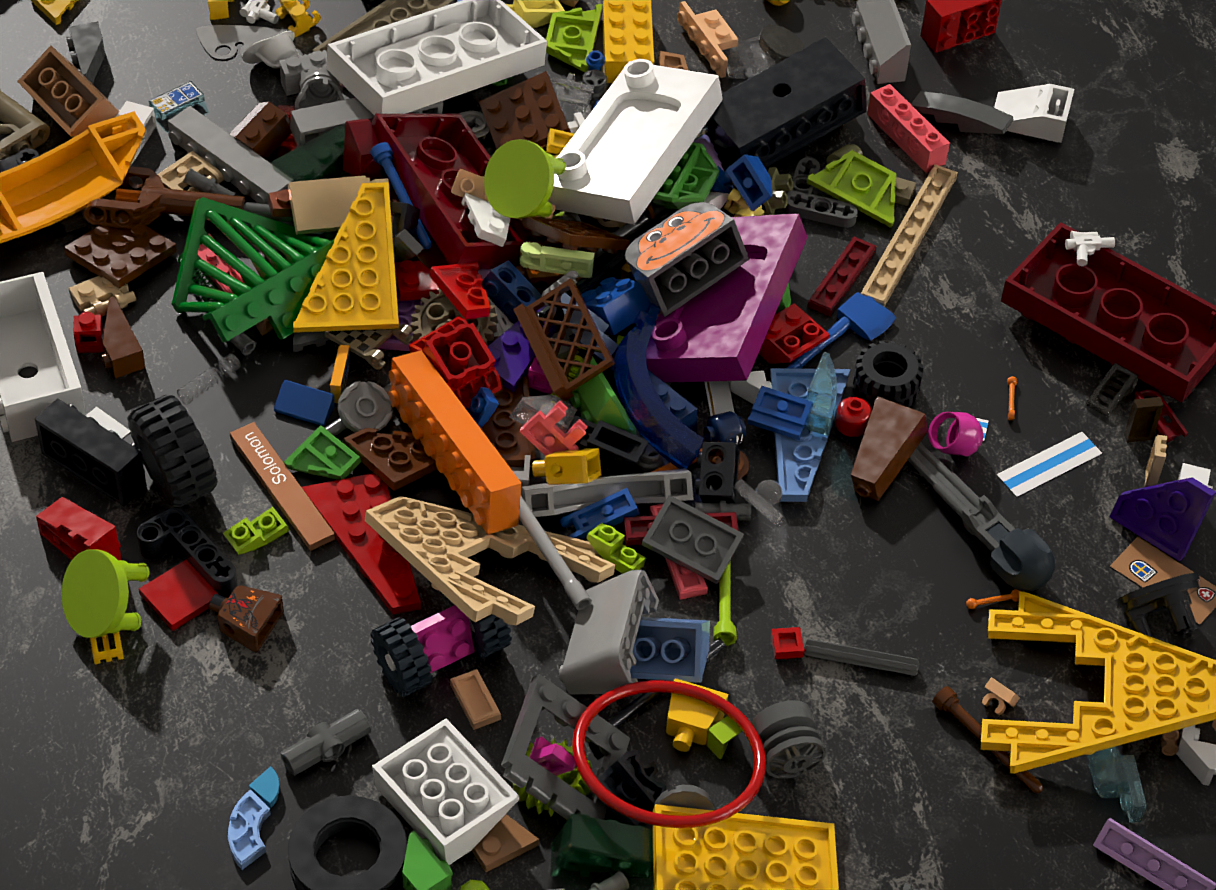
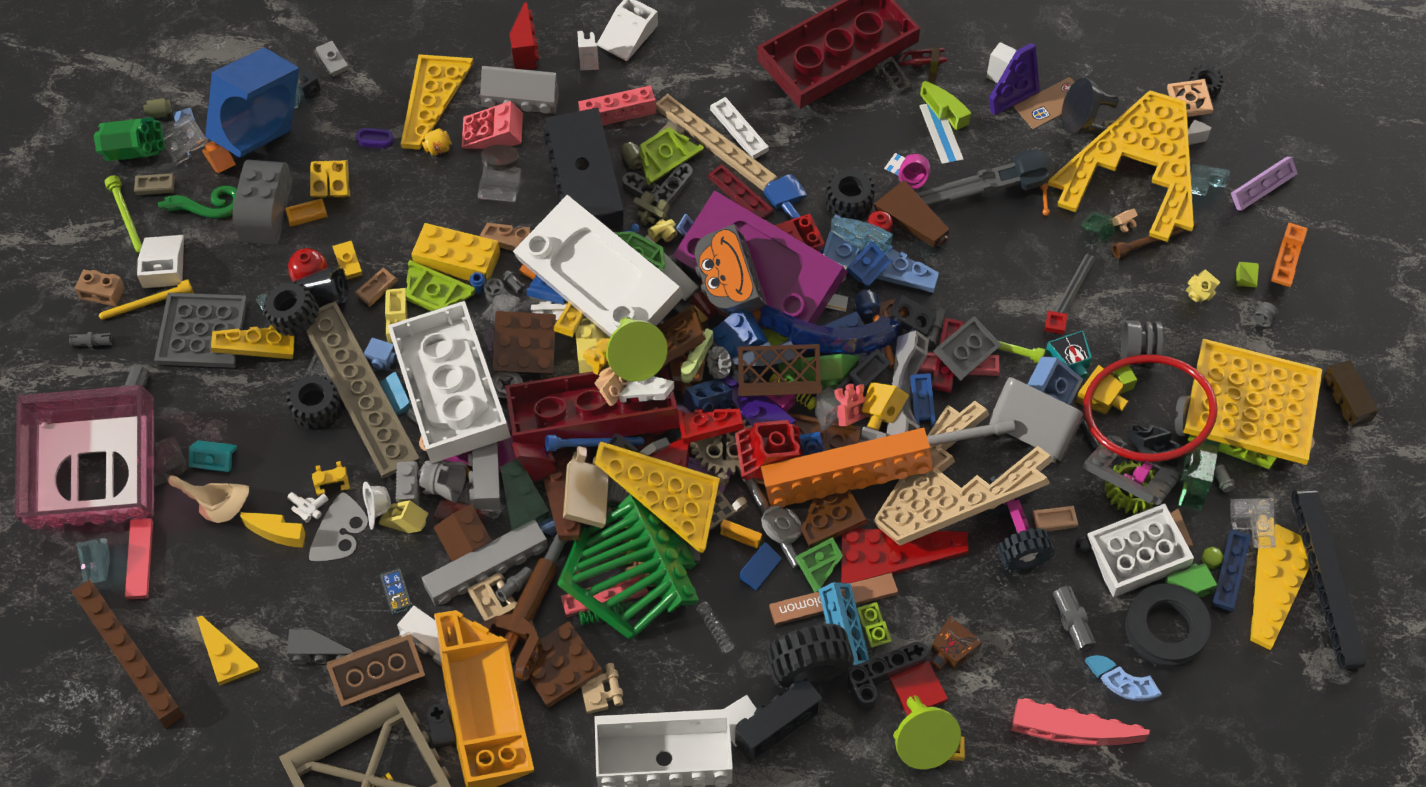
camera: 70 degrees left, 10 degrees up
(77, 530) = (853, 744): red wedge -> none
(88, 326) = (645, 701): red brick -> none
(120, 344) = (661, 682): reddish brown slope -> none
(164, 761) = (1072, 727): none -> coral slope
(240, 487) = (835, 612): none -> dark azure fence
(266, 82) = (404, 517): none -> light yellow slope
(610, 547) = (957, 399): lime slope -> none
(709, 34) = (472, 199): light nougat bracket -> none
(740, 668) = (1072, 351): none -> torso
(751, 180) = (652, 214): blue slope -> none
(763, 499) = (935, 294): clear tile -> none
(821, 23) = (493, 127): none -> coral slope
(921, 805) = (1202, 286): none -> light yellow brick
(939, 250) = (739, 128): none -> white plate
(968, 114) = (614, 69): dark grey slope -> none
(970, 75) = (587, 52): none -> white hinge
(974, 668) = (1099, 224): none -> clear green bracket
(975, 867) = (1247, 274): none -> lime slope
(1011, 381) = (896, 138): orange hinge -> none
(1086, 243) = (786, 39): white piece -> none
(1087, 453) = (945, 105): none -> lime slope
(1156, 461) = (973, 63): tan tile -> none

